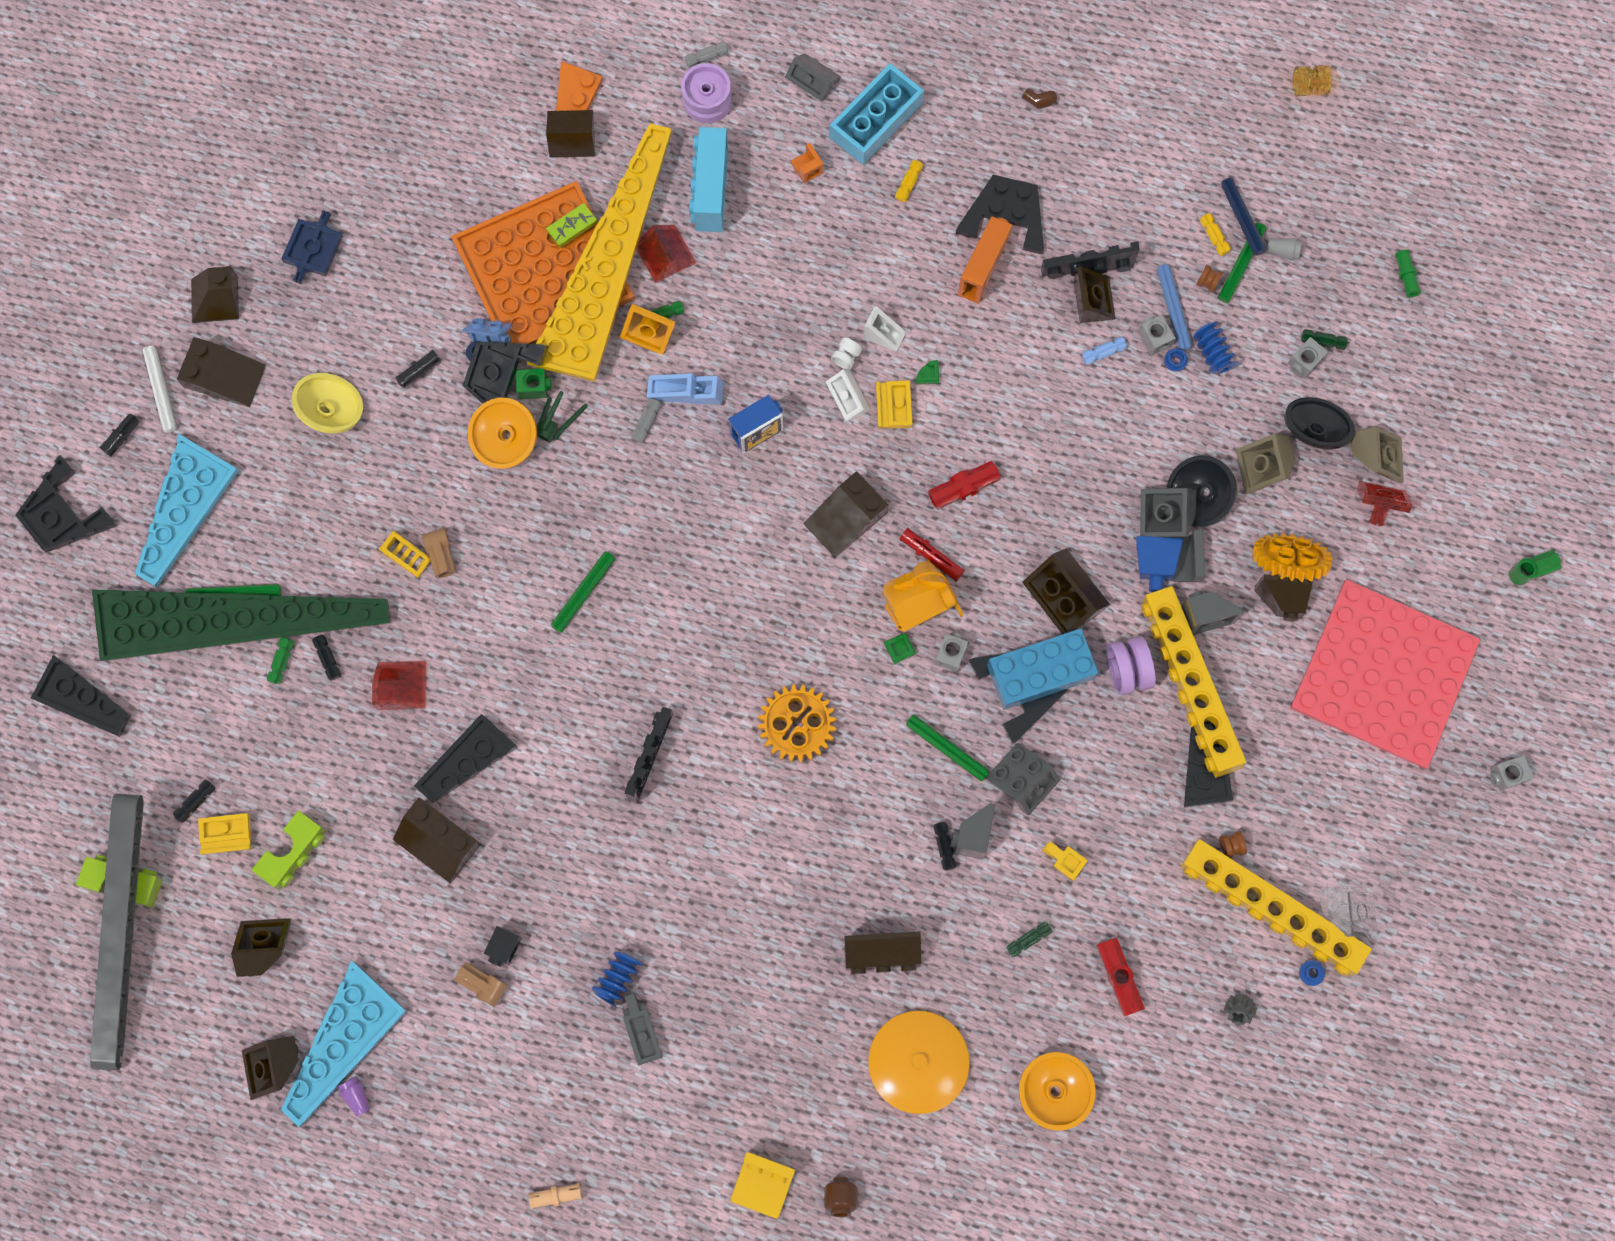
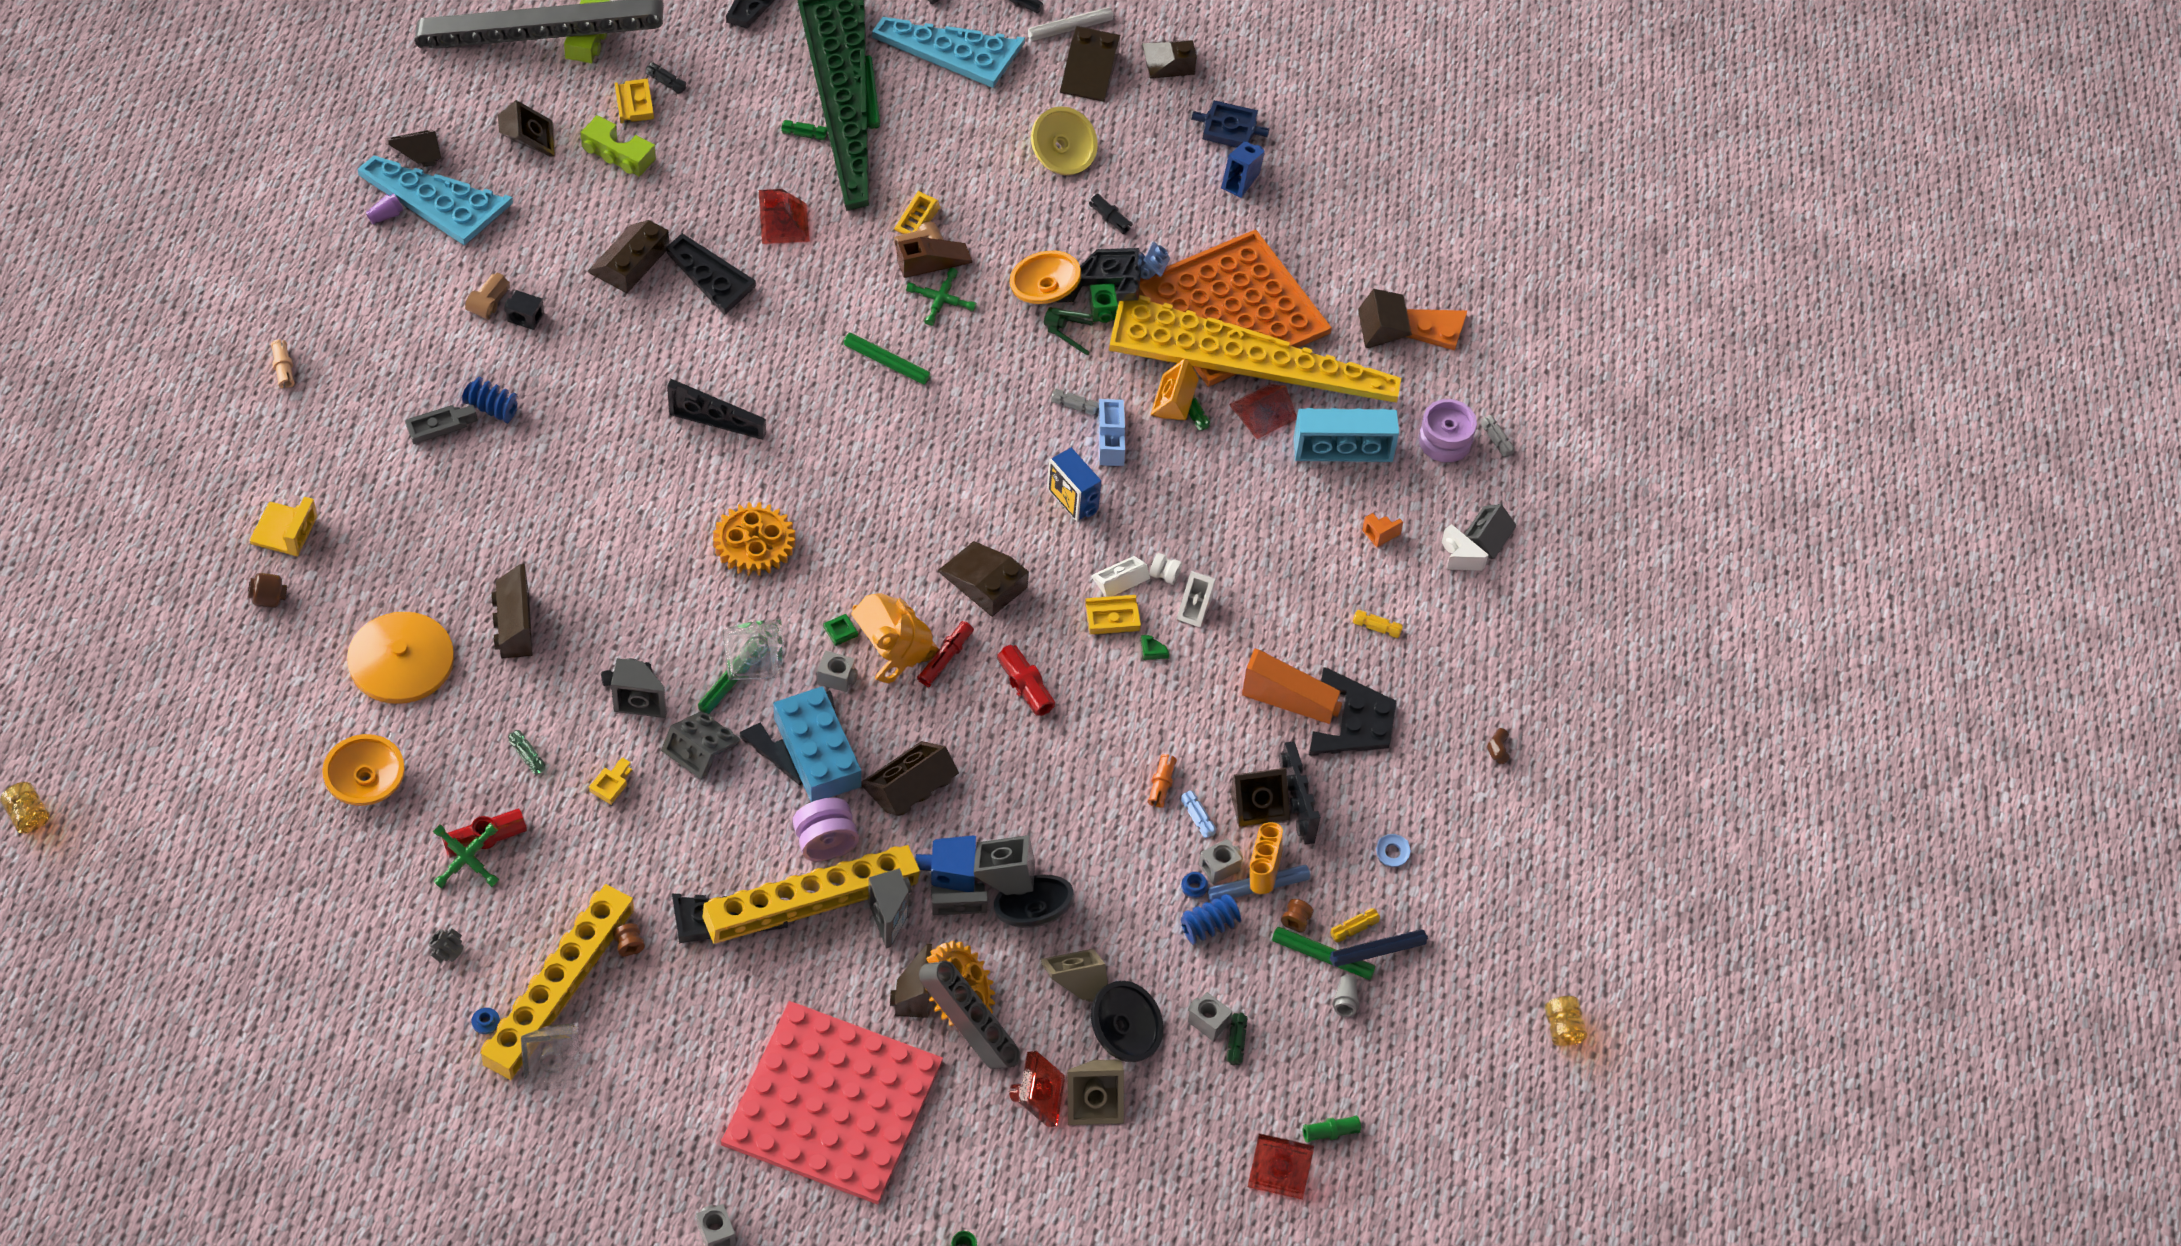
camera: 80 degrees right, 20 degrees down
(326, 657) = (808, 164): black axle -> none
(369, 233) = (1245, 159): none -> blue torso
(462, 541) = (930, 255): none -> reddish brown slope
(508, 536) = (941, 296): none -> green piece
(571, 225) = (1278, 322): lime tile -> none
(838, 96) = (1465, 552): none -> white slope
(876, 114) = (1448, 583): medium azure brick -> none
(930, 725) = (754, 649): none -> clear slope
(1071, 377) = (1162, 780): none -> orange pin
(1149, 189) = (1395, 840): none -> light blue piece
(1150, 992) = (465, 855): none -> green piece
(1151, 288) = (1266, 858): none -> light orange beam
(1333, 546) = (969, 1015): none -> dark grey beam
(1450, 314) = (1280, 1166): none -> clear red tile

